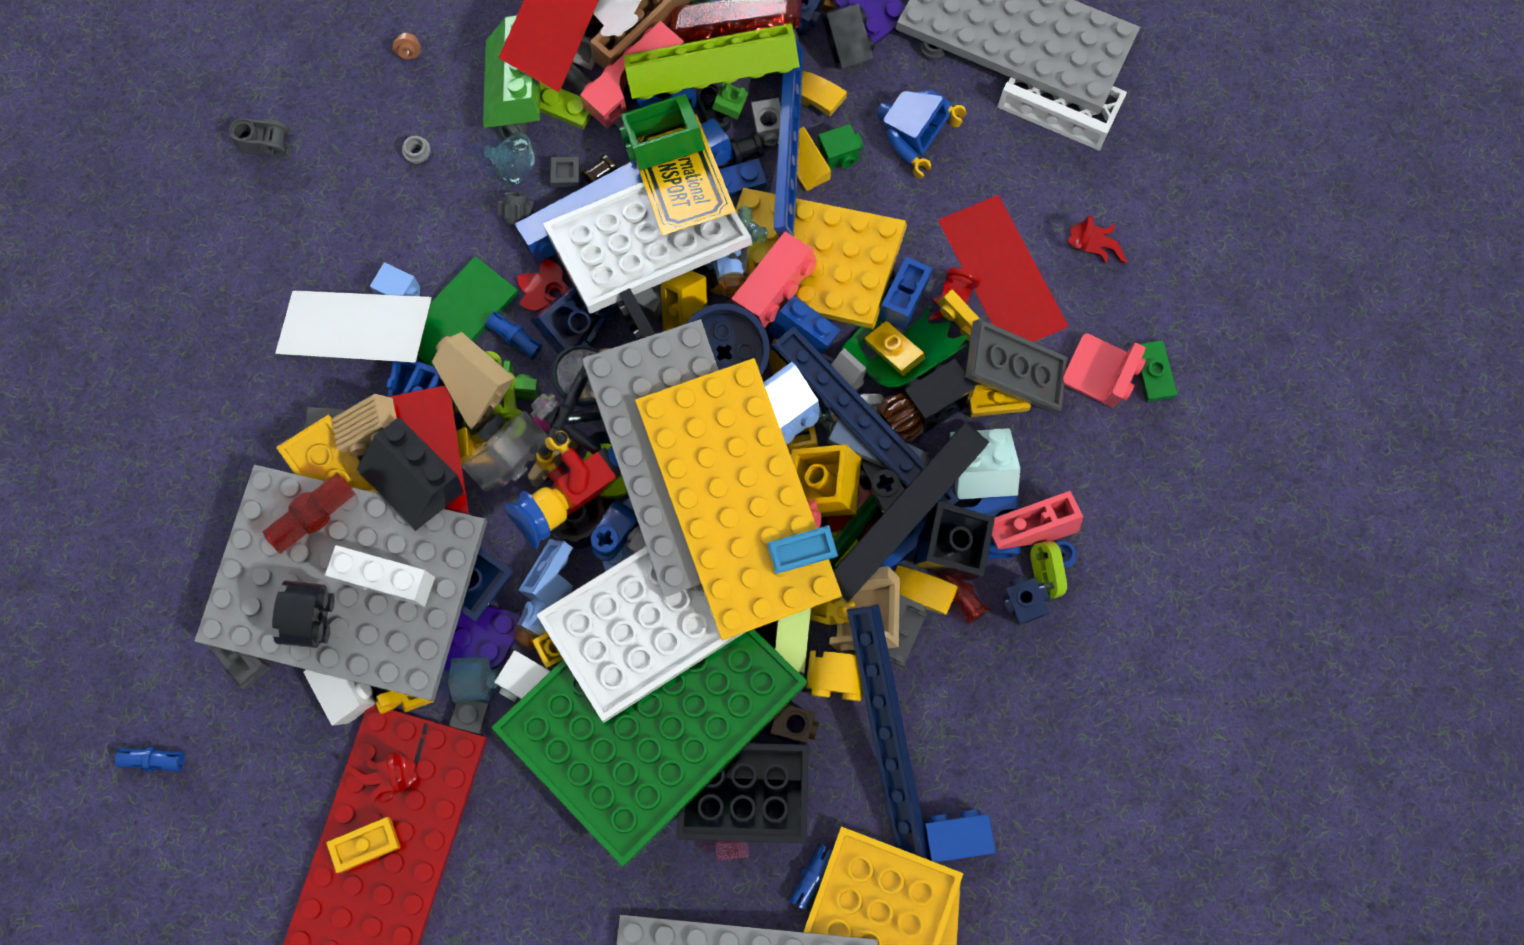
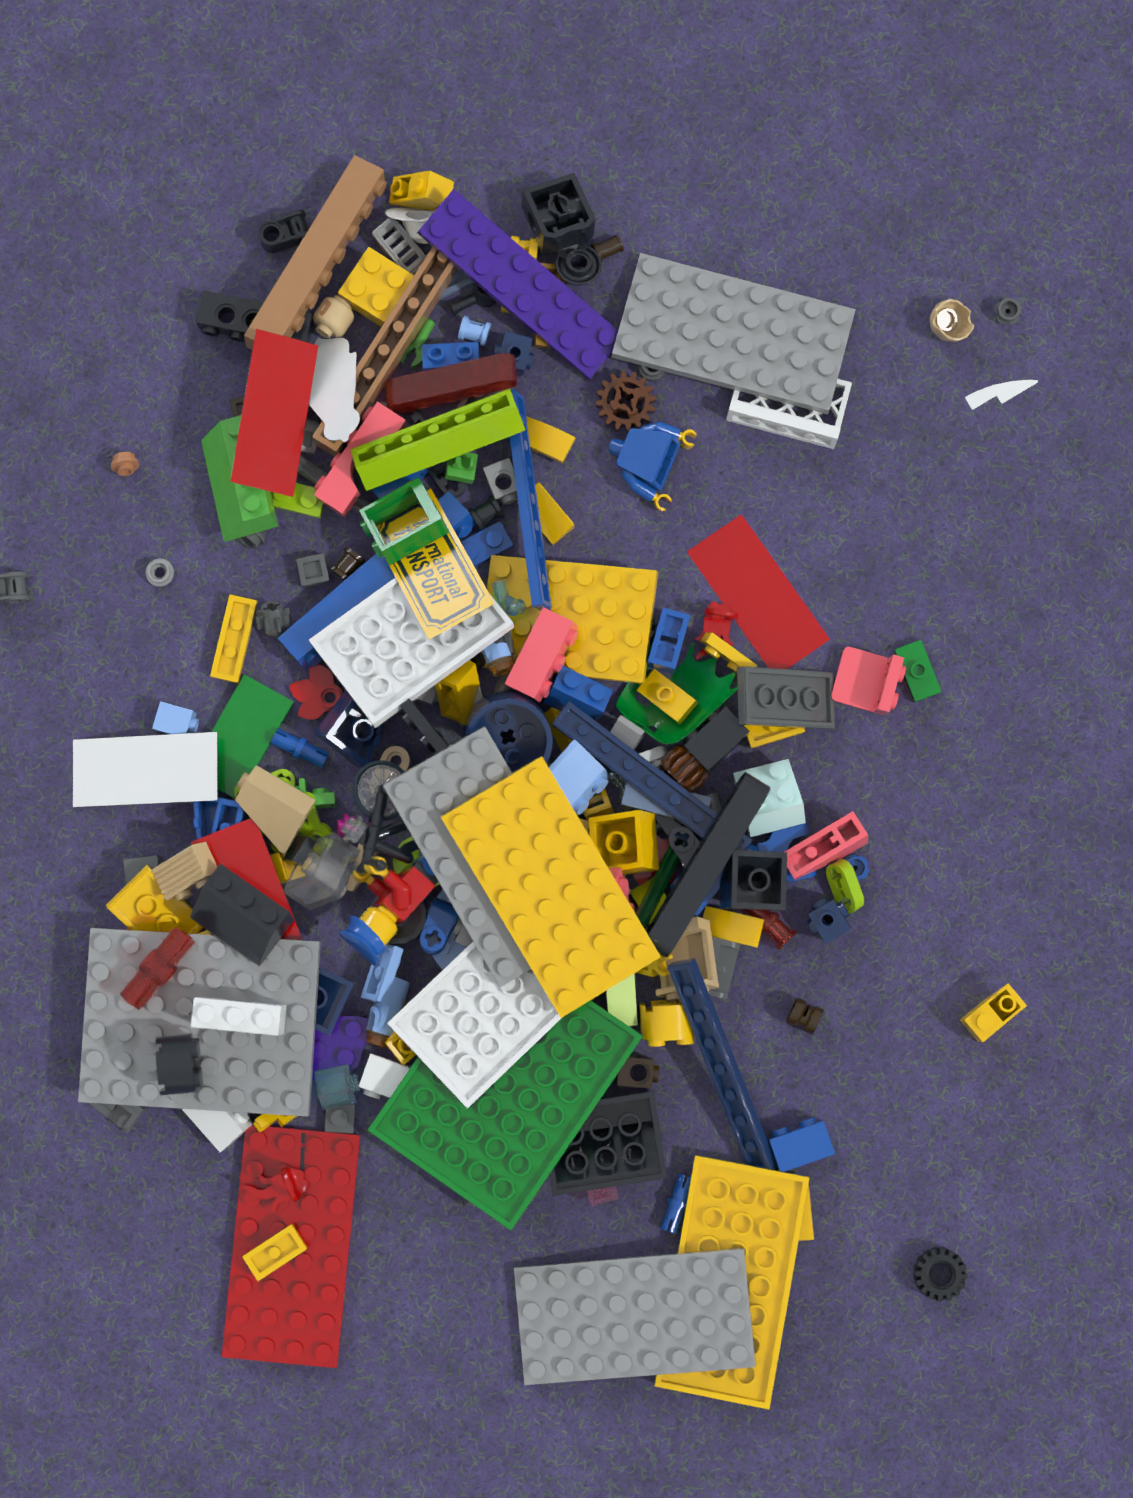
camera: 10 degrees left, 10 degrees up
(149, 759) = (59, 1212): blue pin -> none
(472, 222) = (234, 639): none -> yellow plate
(512, 158) = (259, 567): clear light blue piece -> none
(802, 549) = (617, 925): dark azure tile -> none
(840, 147) = (579, 496): green brick -> none
(848, 35) = (565, 377): black brick -> none
(900, 79) = (636, 395): none -> reddish brown gear
(984, 698) = (810, 1019): none -> dark brown wheel
(1092, 238) = (837, 547): red piece -> none
(1190, 732) = (993, 1013): none -> yellow slope
(1233, 50) = (951, 321): none -> tan hair
(1275, 126) = (1003, 391): none -> white sticker
(1293, 47) = (1013, 306): none -> dark grey plate

